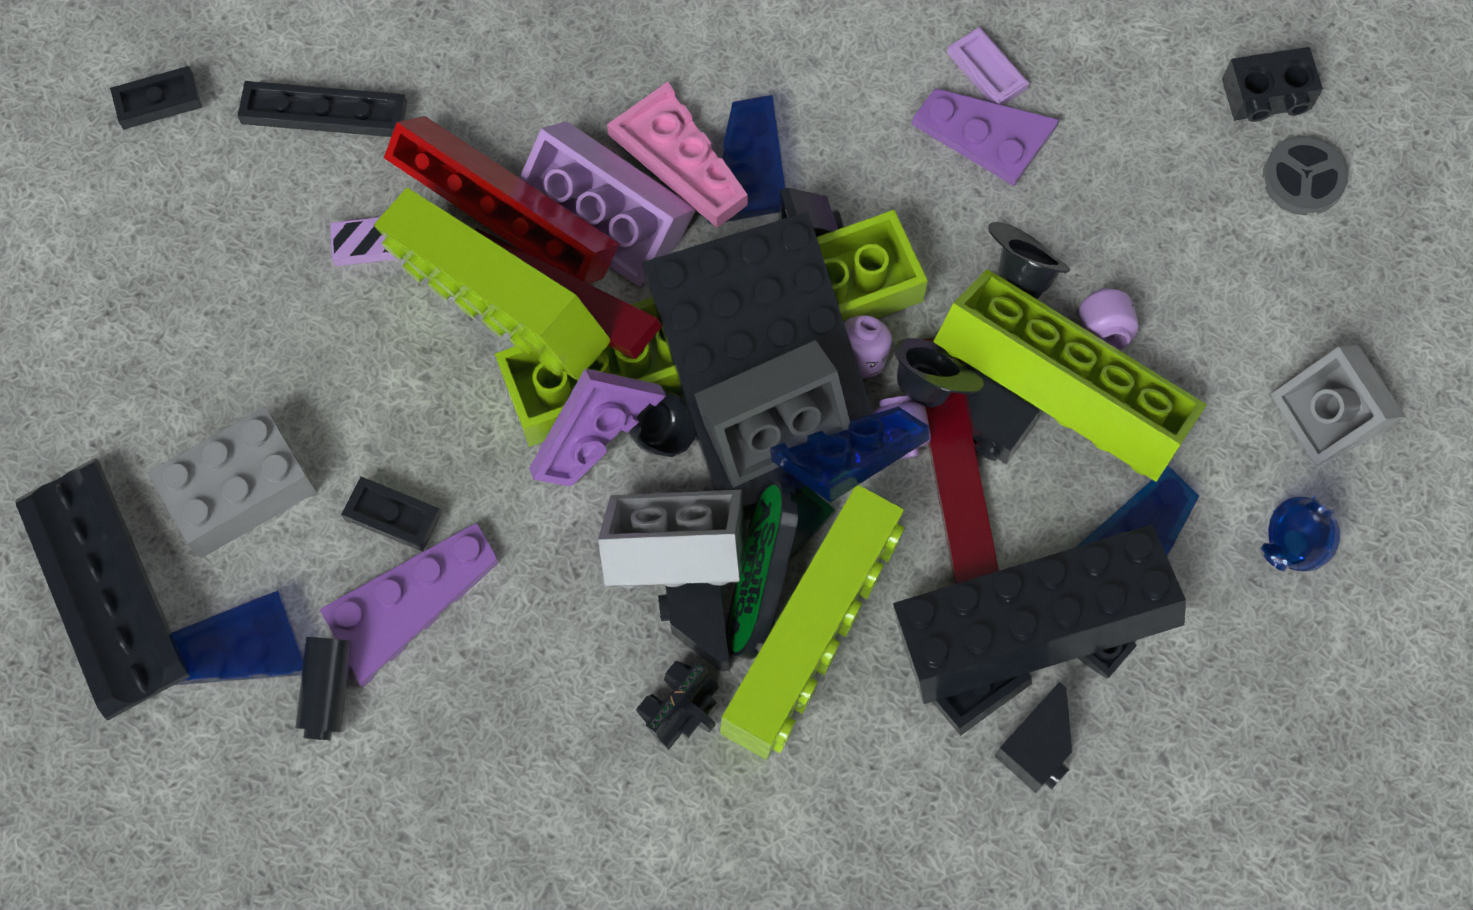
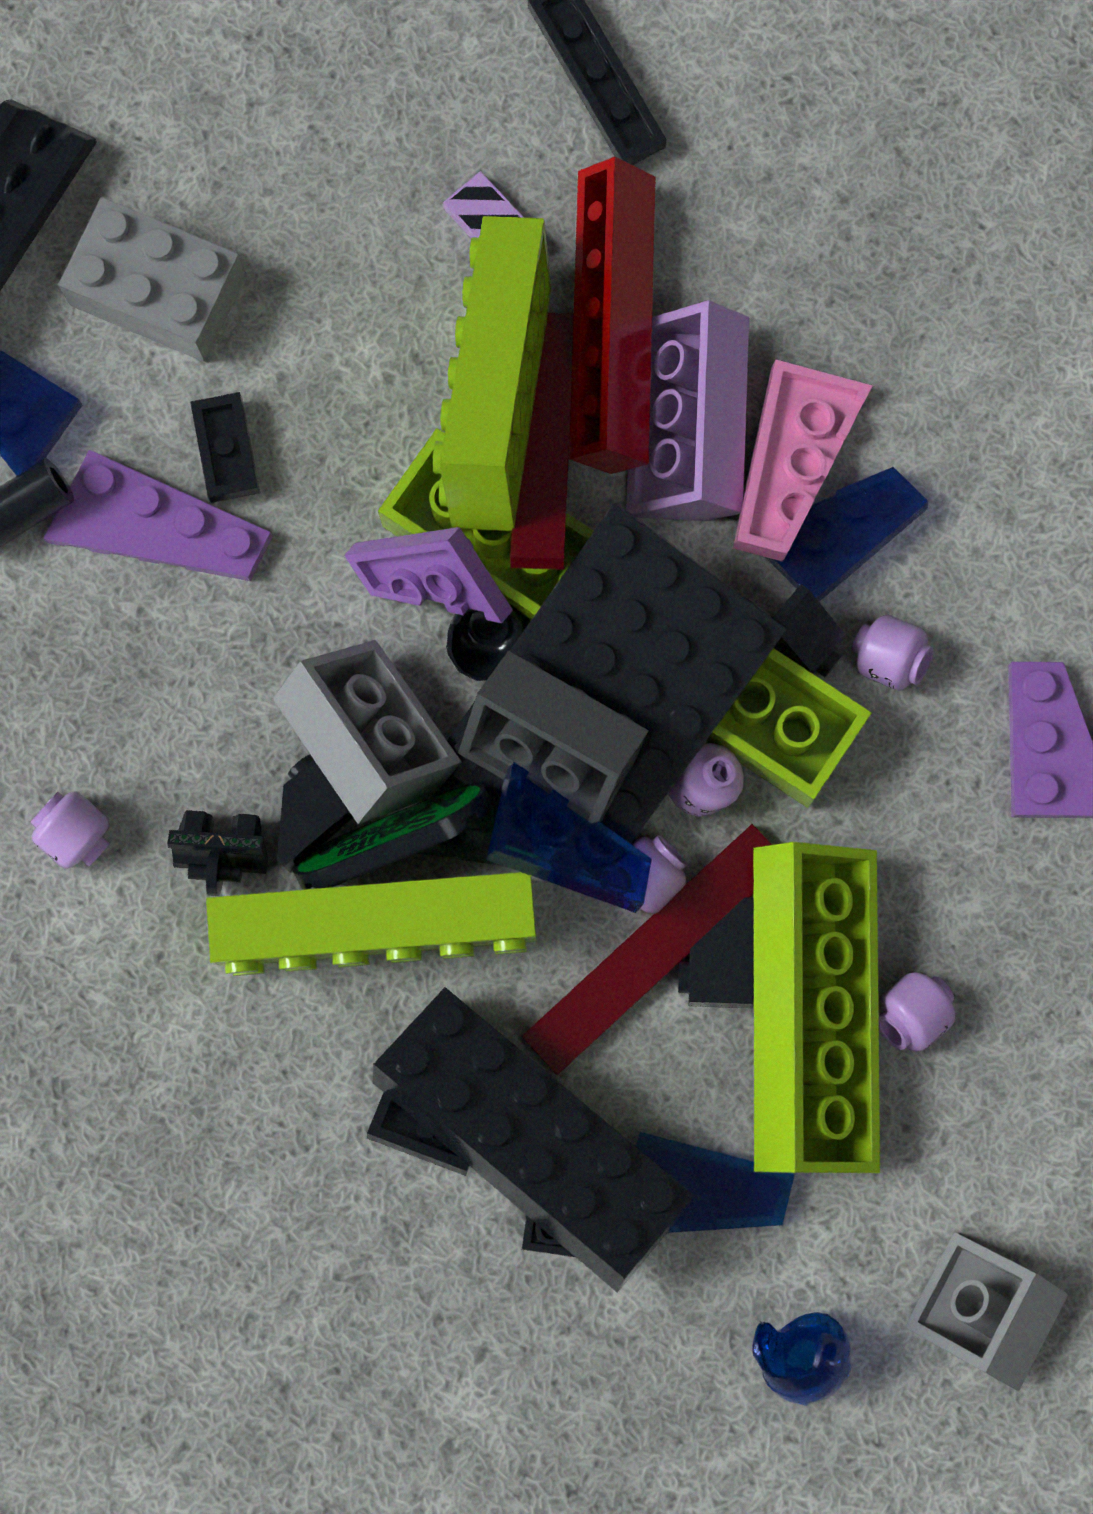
camera: 60 degrees right, 10 degrees up
(591, 802) = (70, 830): none -> lavender head
(856, 181) = (892, 652): none -> lavender head
(931, 373) = (719, 870): black piece -> none
(1025, 260) = (927, 882): black piece -> none
(1041, 743) = (407, 1222): black slope -> none

